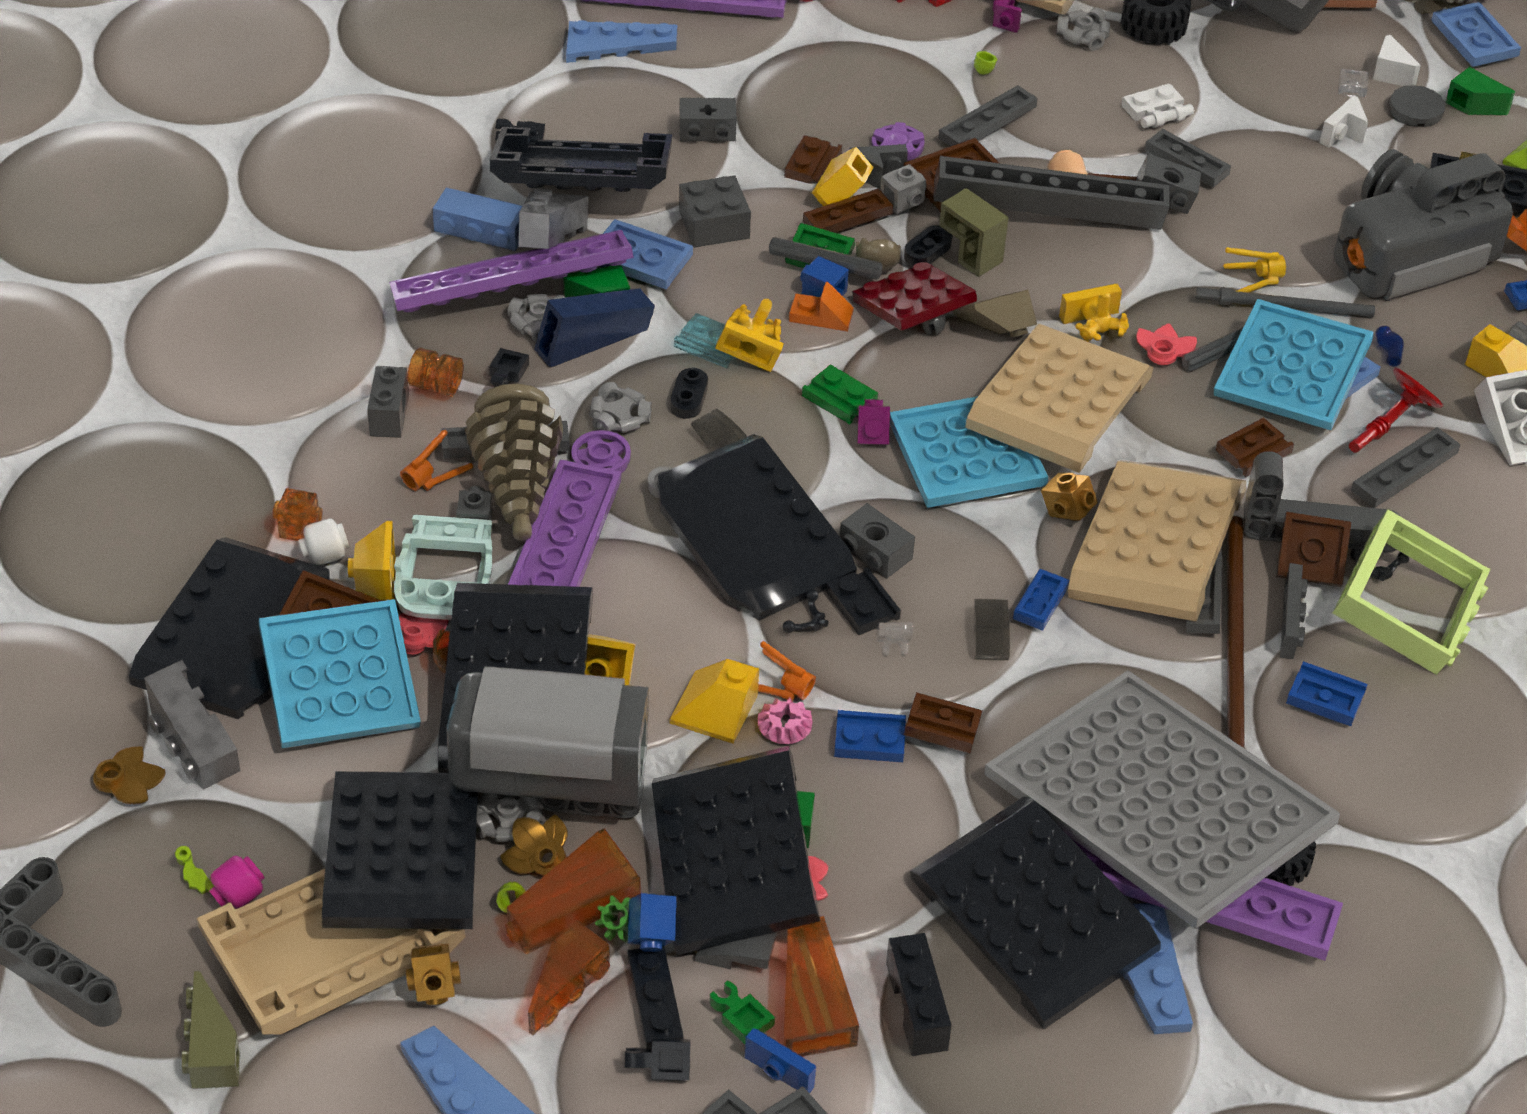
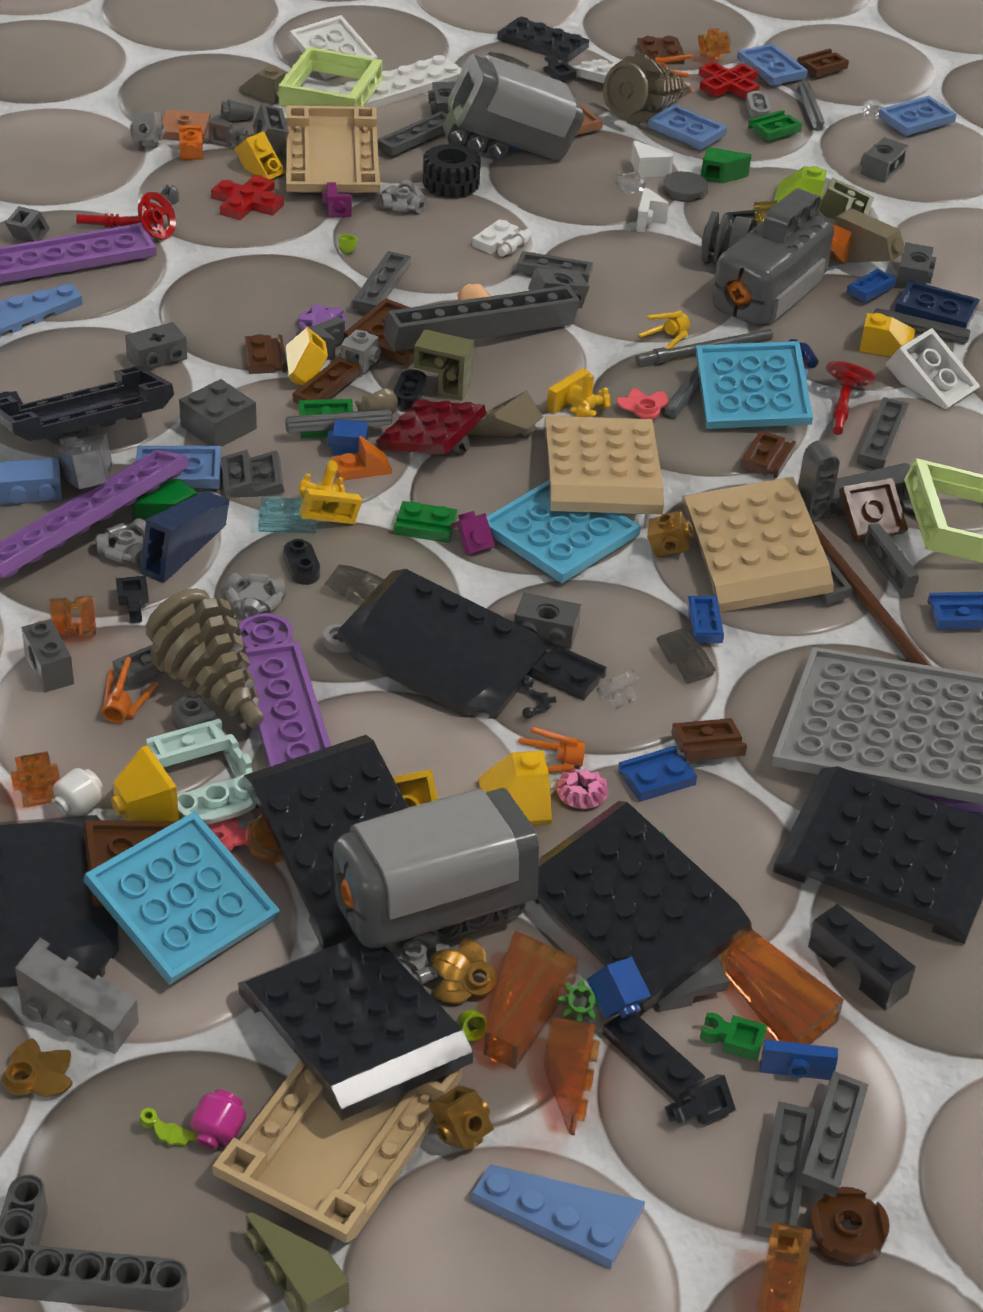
camera: 30 degrees left, 5 degrees down
(706, 286) = (253, 475): none -> dark grey slope

